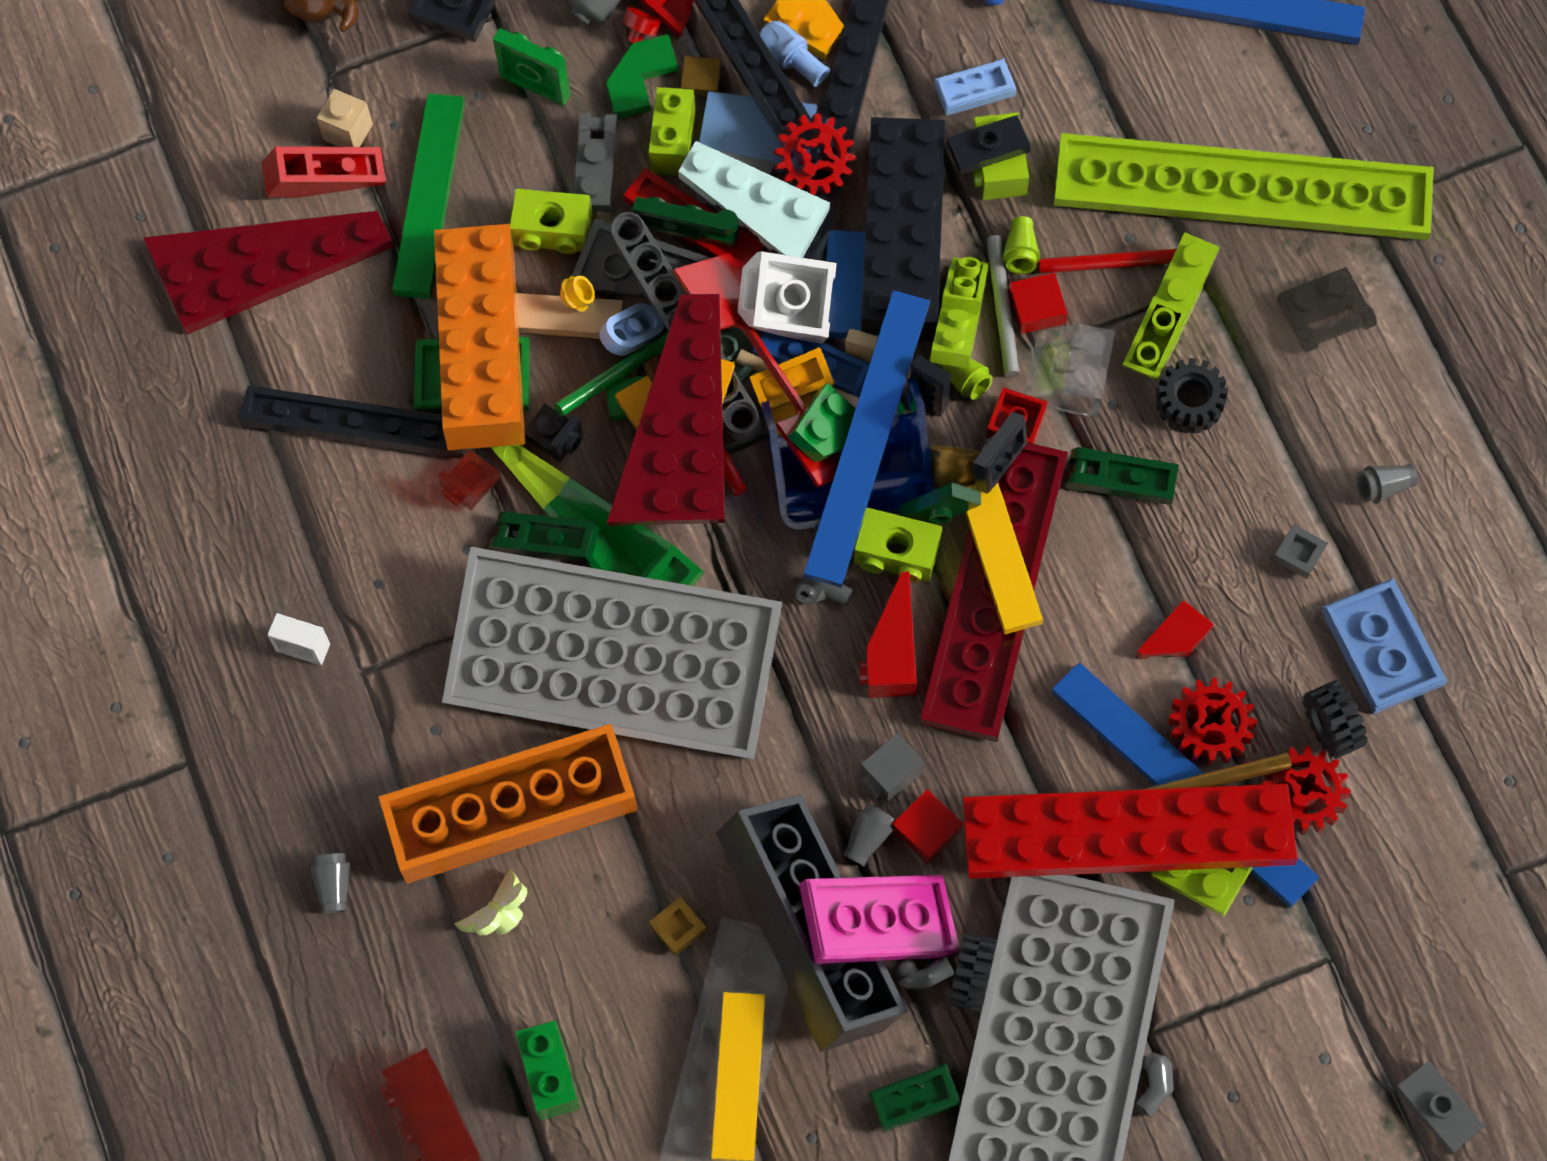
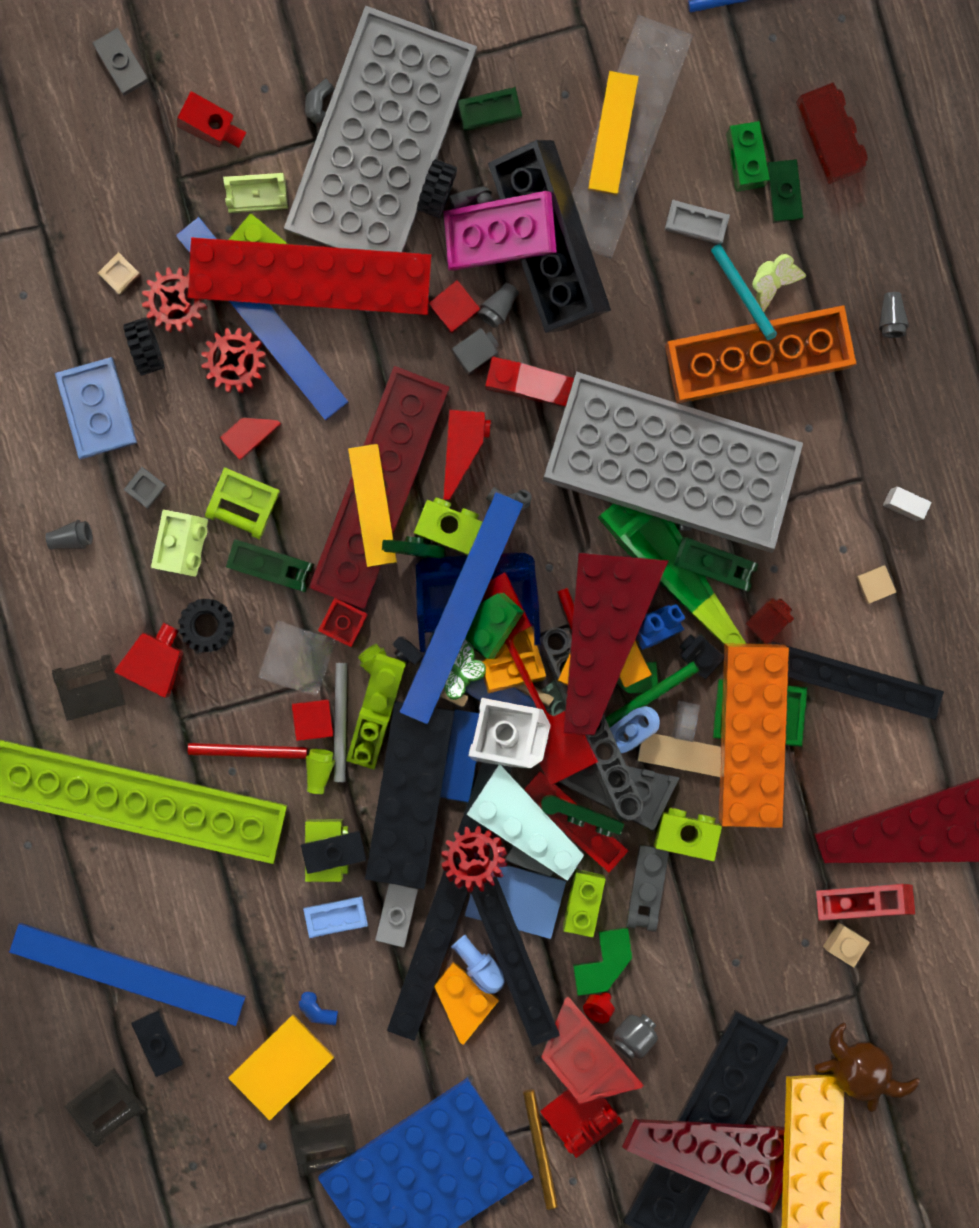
camera: 175 degrees left, 20 degrees up
(333, 542) = (876, 584): none -> tan tile
(428, 195) = (782, 875): green tile -> none
(491, 1036) = (785, 191): none -> dark green plate
(532, 66) = (699, 978): green plate -> none
(538, 879) = (744, 292): none -> teal bar
(566, 348) = (685, 721): none -> clear piece
(577, 293) = (673, 765): yellow plate -> none
(609, 976) = (696, 222): none -> light grey plate
(610, 453) = (660, 626): none -> blue hips
(677, 926) = (644, 253): pearl gold plate -> none
(701, 75) = (555, 955): pearl gold tile -> none
(816, 738) = (528, 382): none -> red slope
(853, 369) = (463, 672): none -> bright green animal
(901, 91) = (396, 914): none -> light grey plate
(952, 465) = (395, 584): pearl gold helmet -> none
(1000, 452) = (362, 584): black plate -> none
(1168, 558) = (247, 494): none -> lime plate
(1171, 307) = (210, 699): lime slope -> none
(1220, 947) = (256, 192): none -> yellowish green hinge
(1232, 774) = (240, 313): pearl gold bar -> none
(1243, 488) = (179, 543): none -> yellowish green bracket
(1251, 344) = (153, 661): none -> red torso
(1318, 1030) = (197, 115): none -> red torso
(1386, 821) = (119, 273): none -> tan tile

